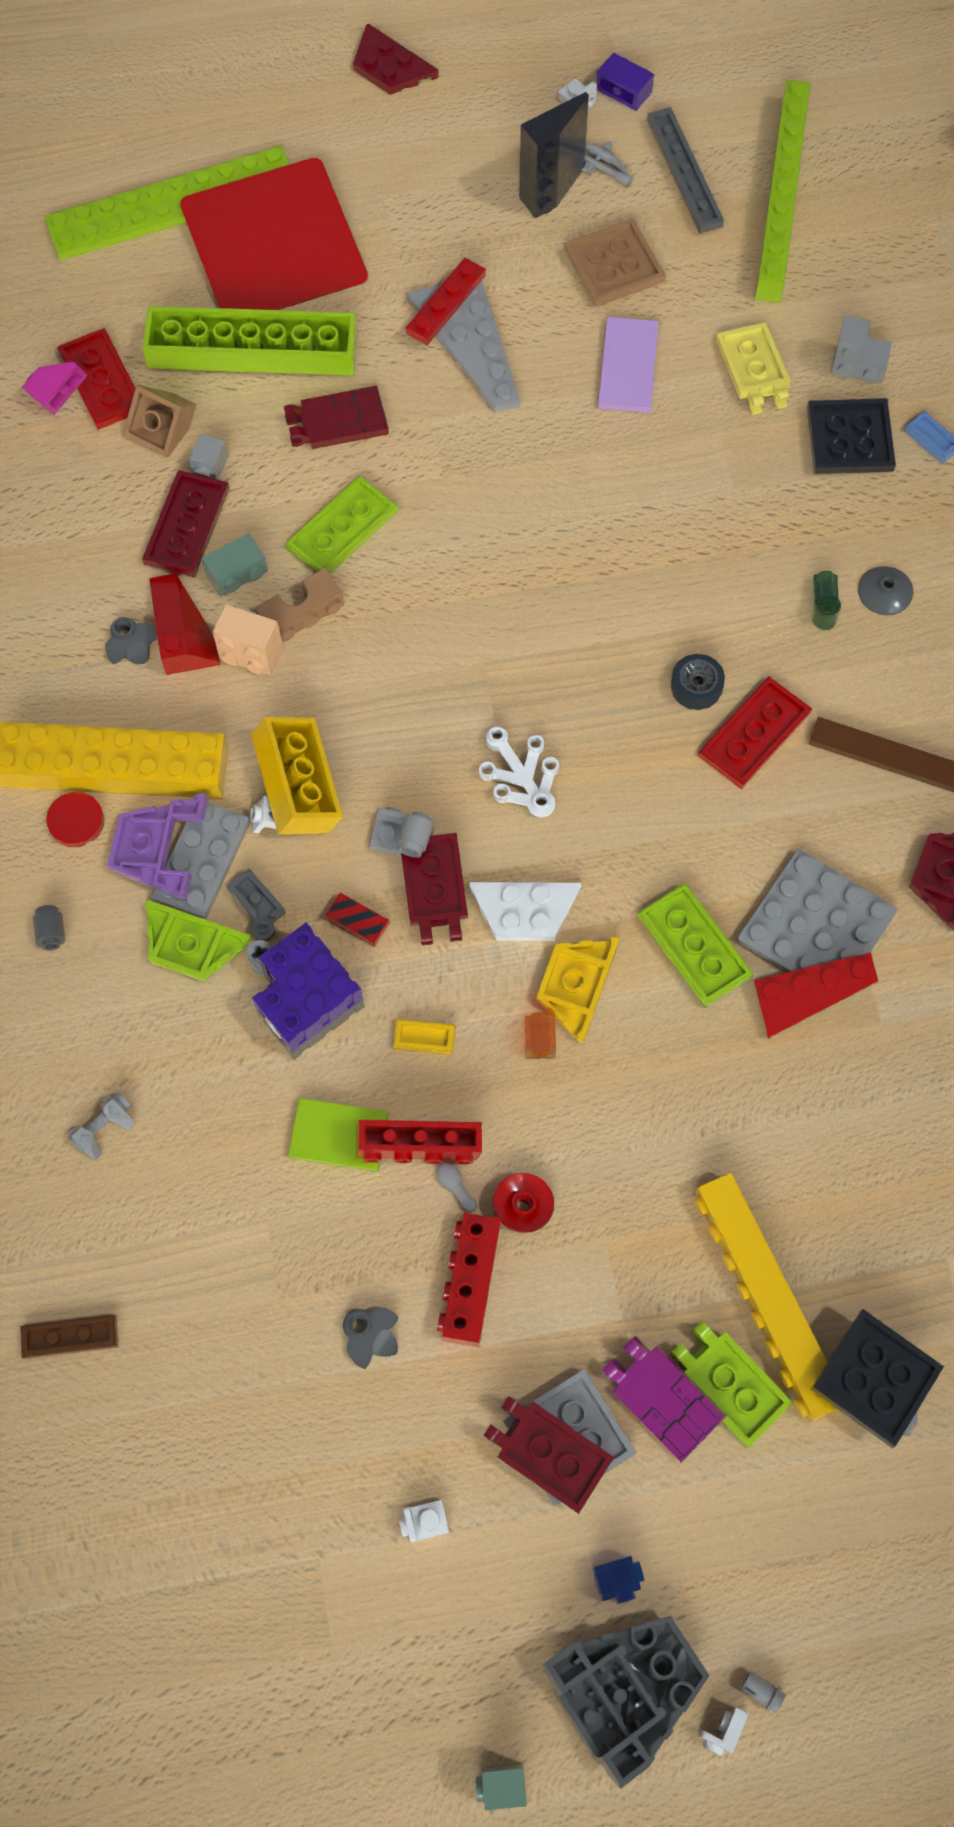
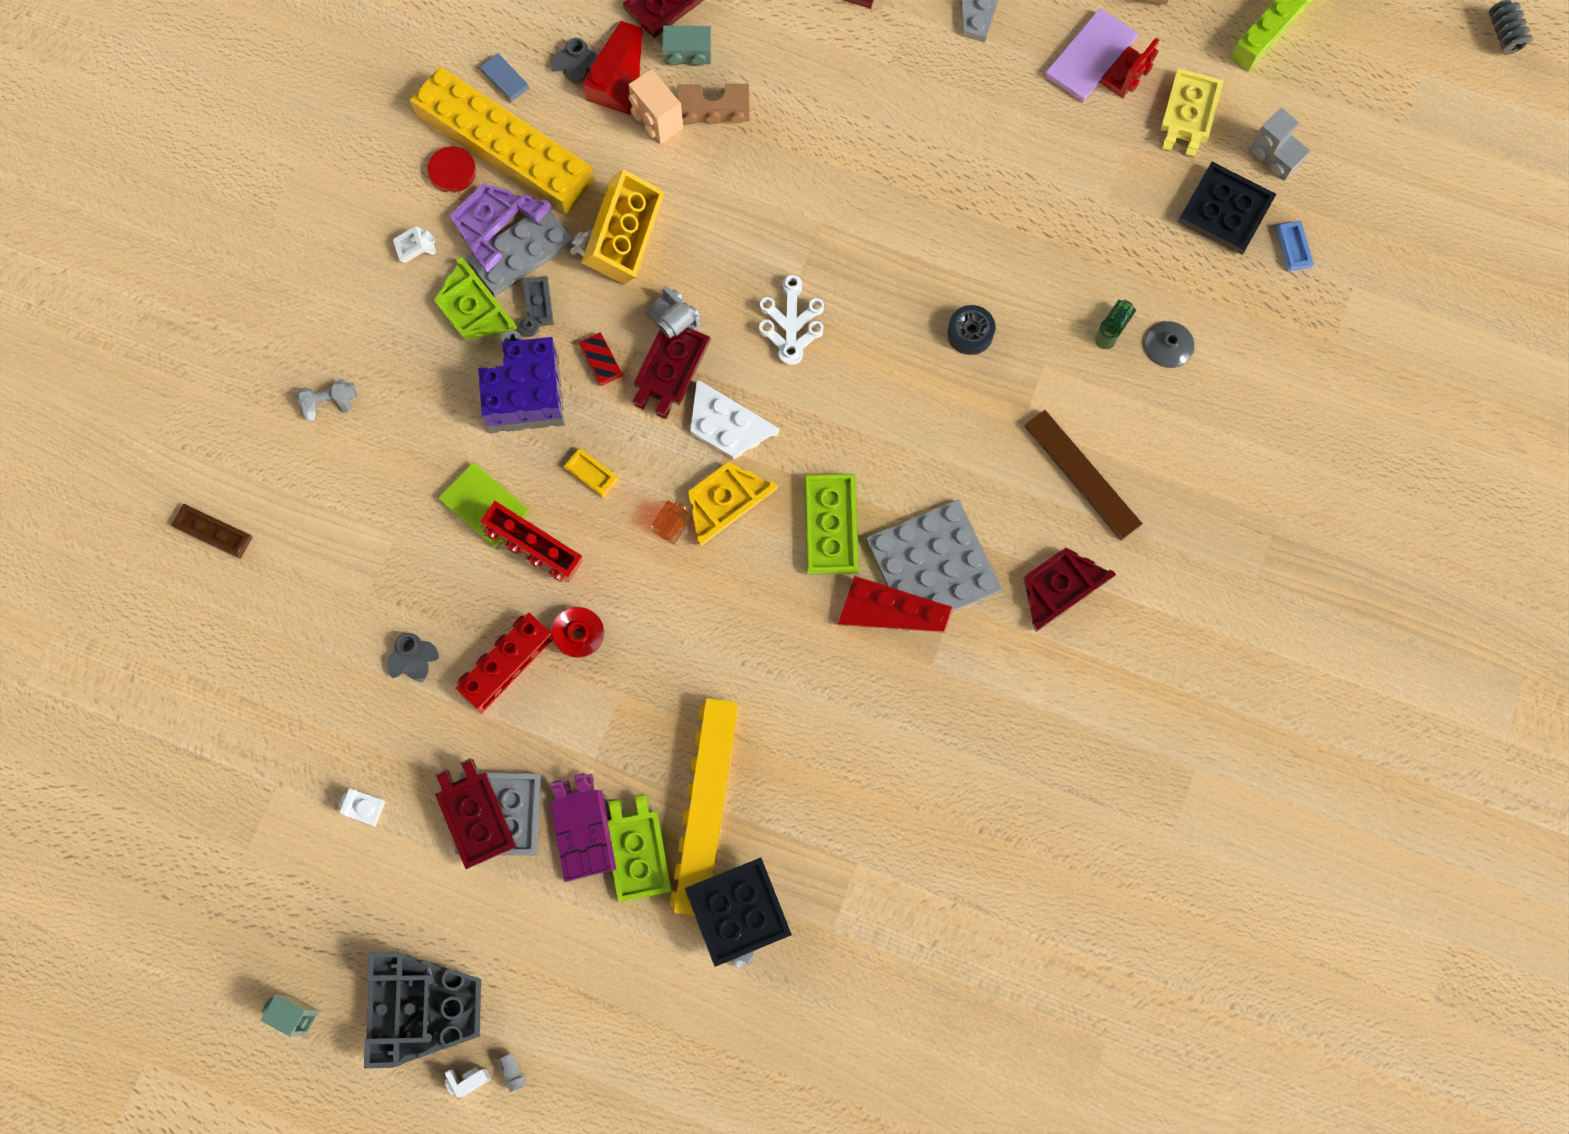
camera: 30 degrees right, 5 degrees up
(48, 927) = (381, 236): dark grey brick -> none
(67, 698) = (504, 77): none -> sand blue tile
(88, 915) = (414, 243): none -> white bracket
(342, 526) = (787, 60): lime tile -> none
(451, 1180) = (541, 584): light grey piece -> none
(618, 1579) = (464, 932): clear blue brick -> none
(675, 358) = (1128, 69): none -> red bracket
(755, 732) = (989, 393): red tile -> none

